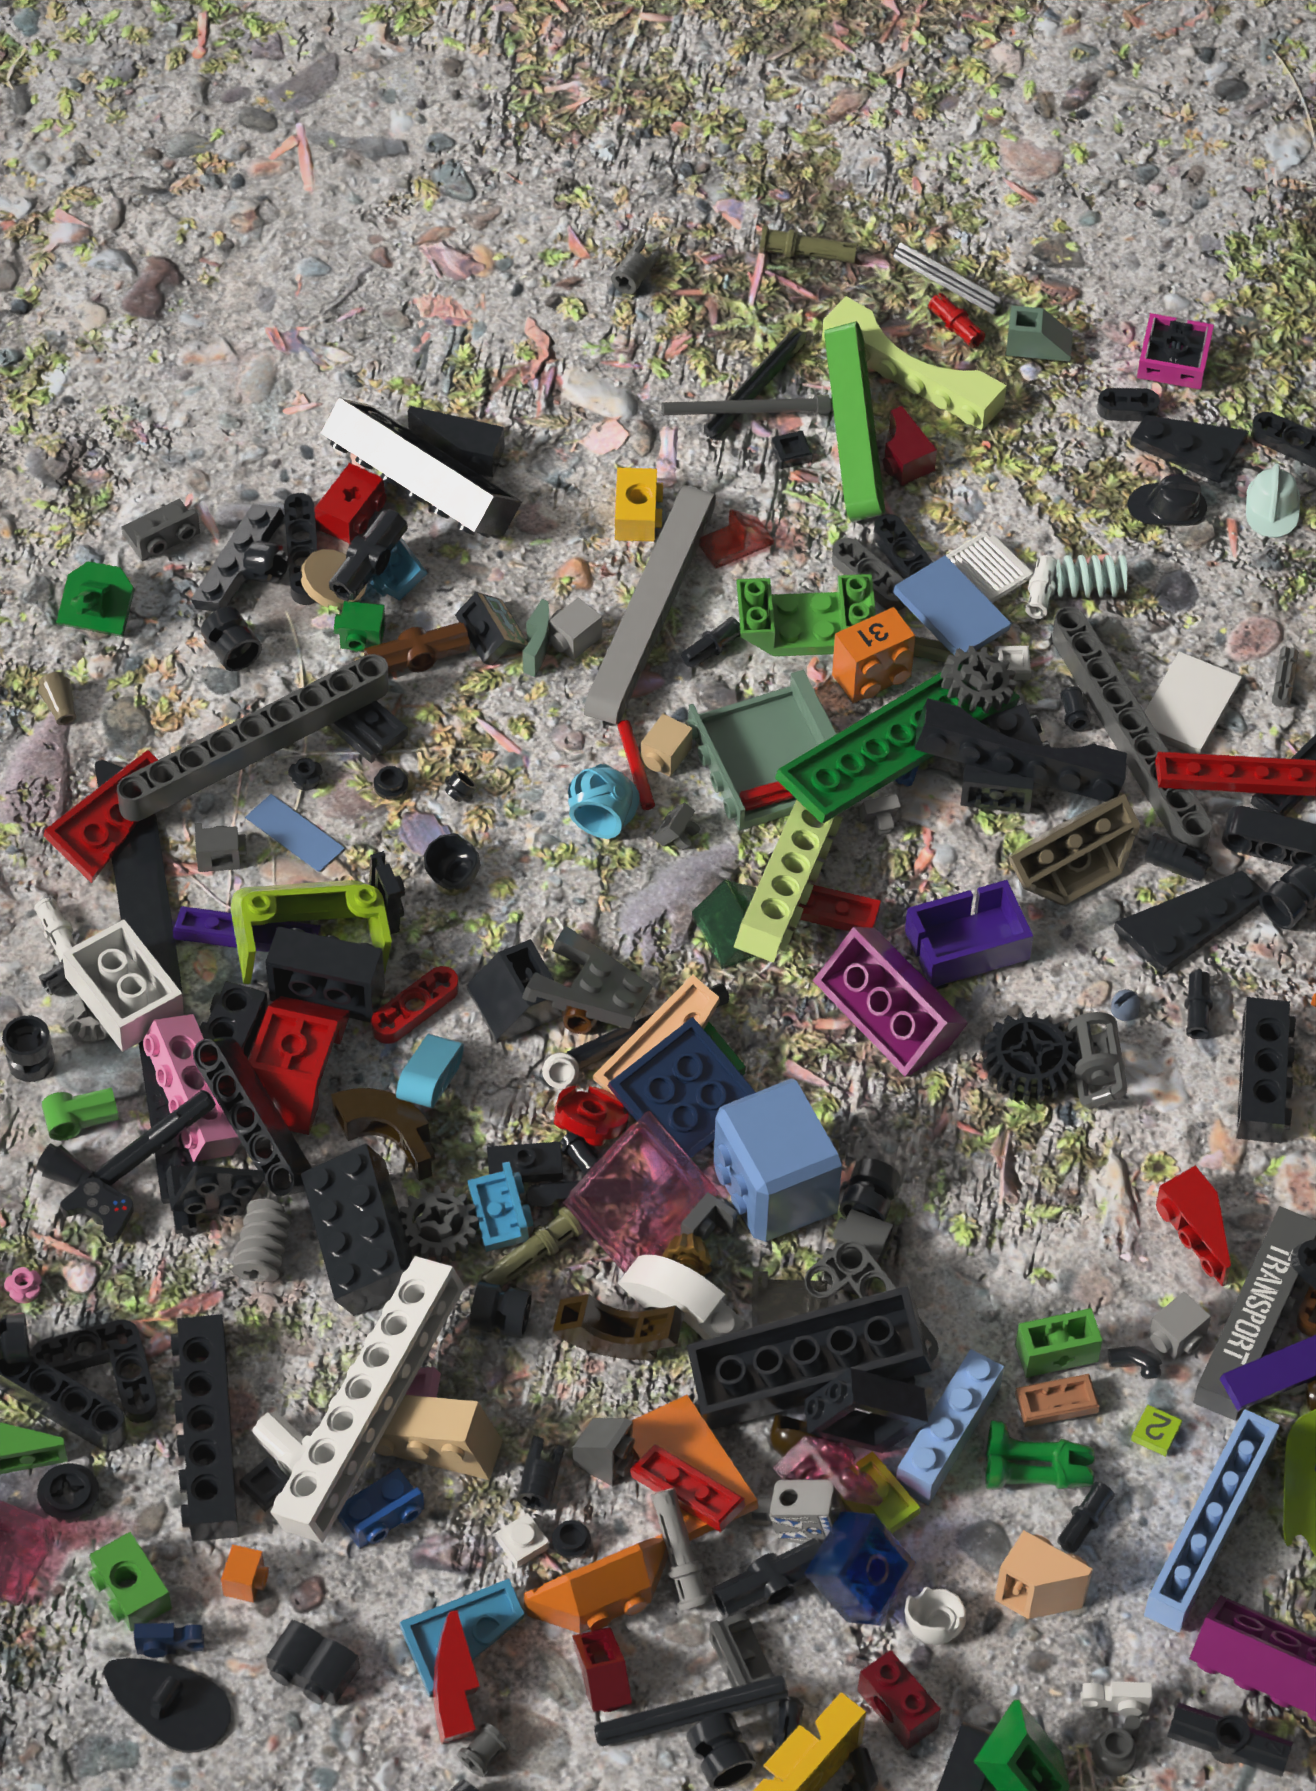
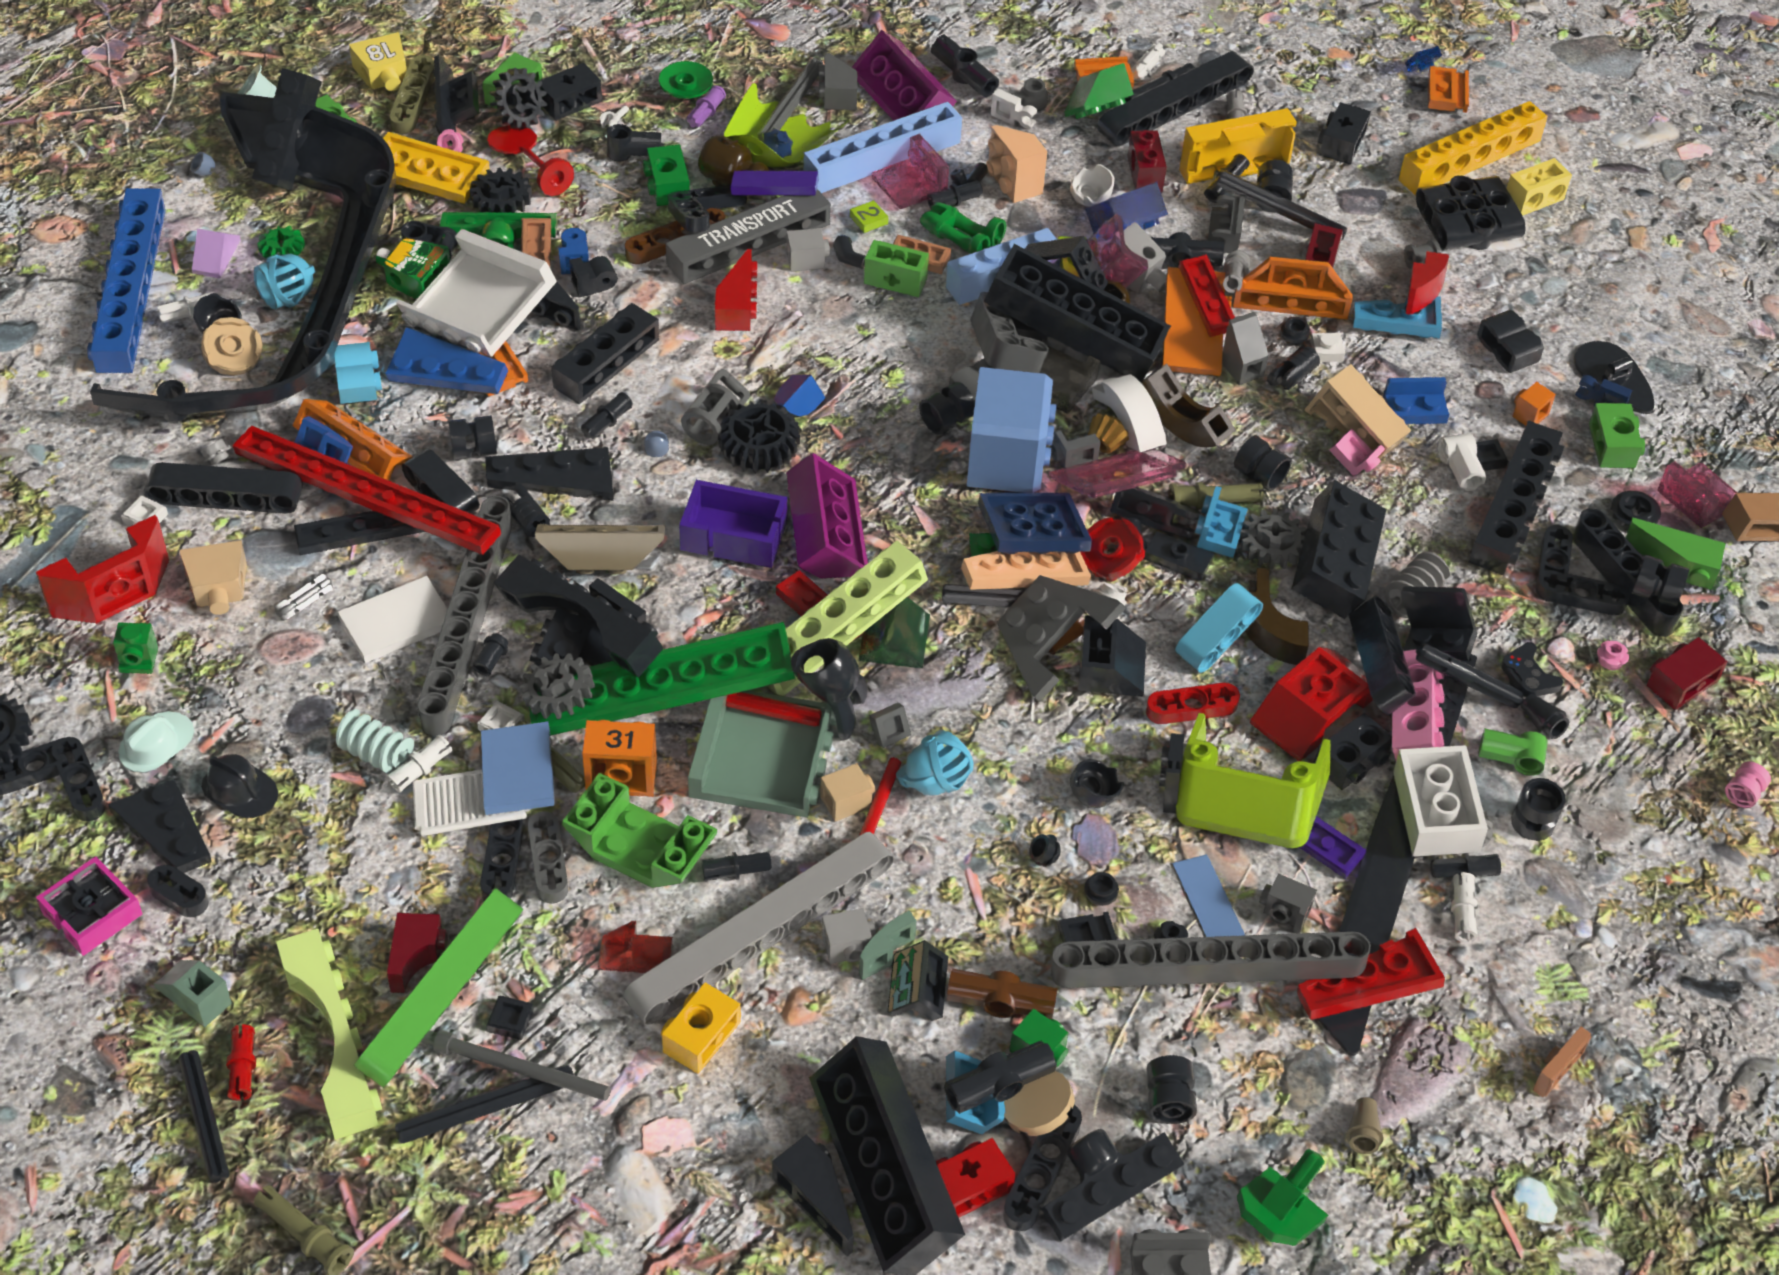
camera: 150 degrees left, 5 degrees down
(326, 972) = (1258, 730): black brick -> none
(367, 1399) = (1398, 430): white brick -> none
(740, 799) = (834, 681): none -> black piece
(1034, 1130) = (799, 395): none -> blue brick
(1094, 1553) = (978, 173): none -> black arm
(1150, 1508) = (915, 177): none -> clear pink bracket

